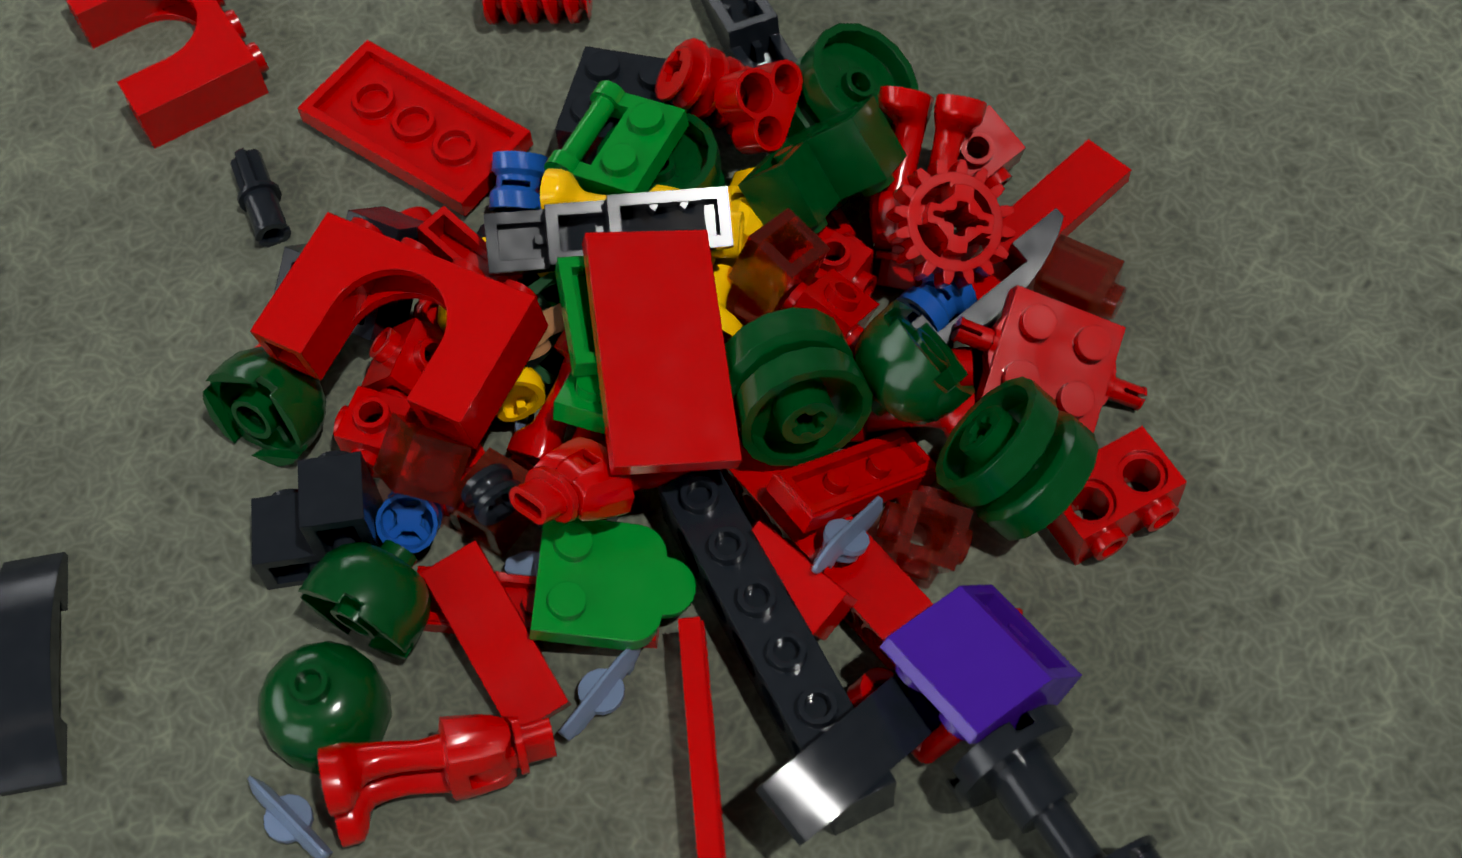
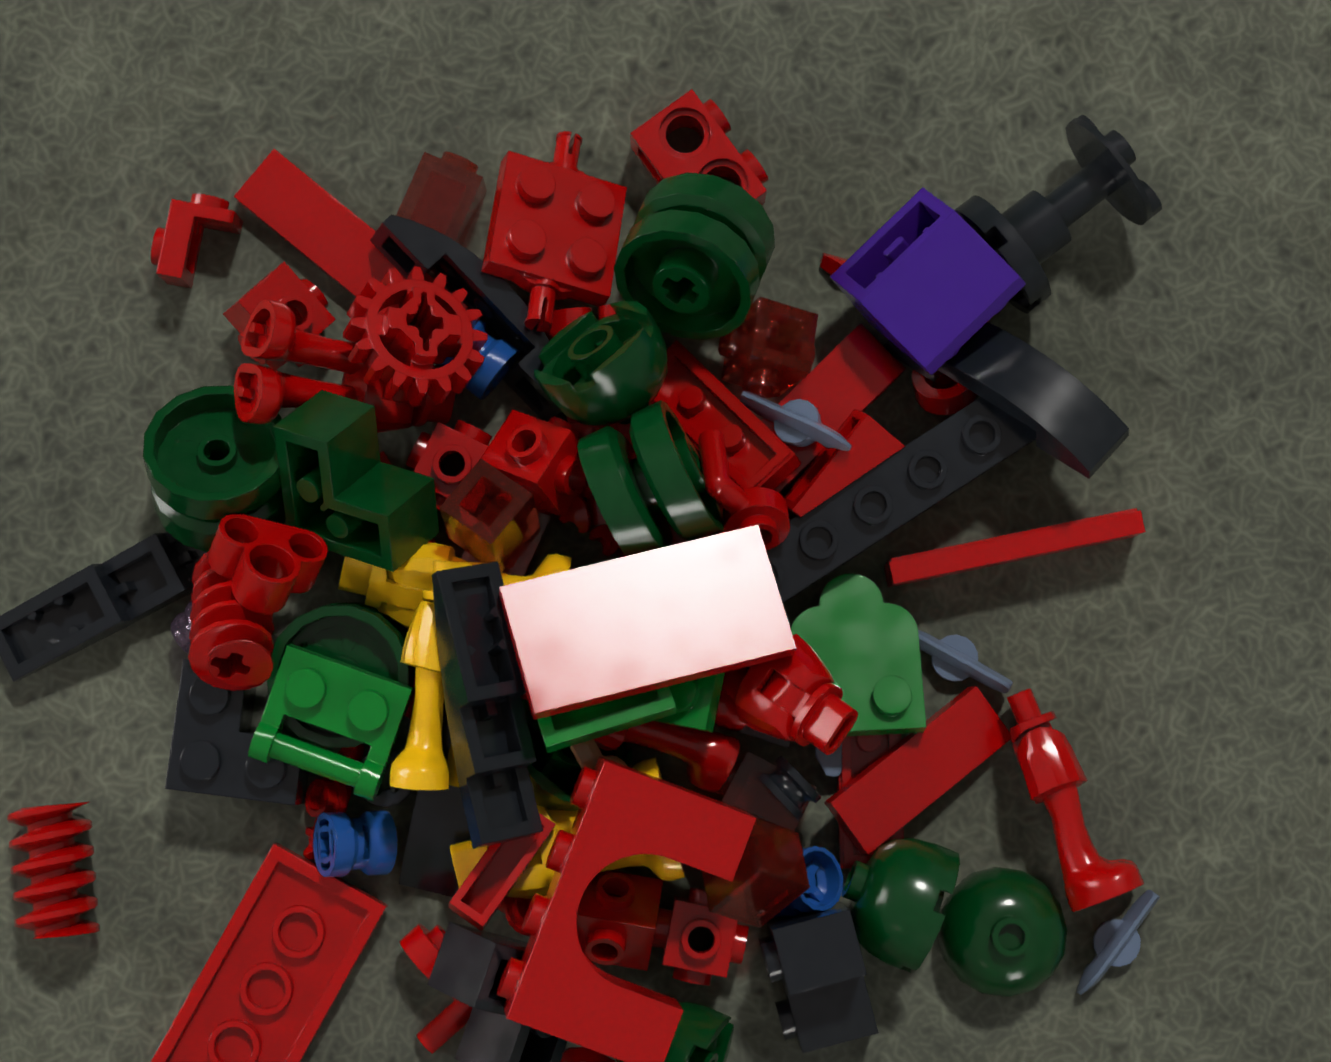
camera: 105 degrees left, 25 degrees up
(759, 476) = (741, 506): none -> red plate
(1051, 101) = (179, 243): none -> red bracket

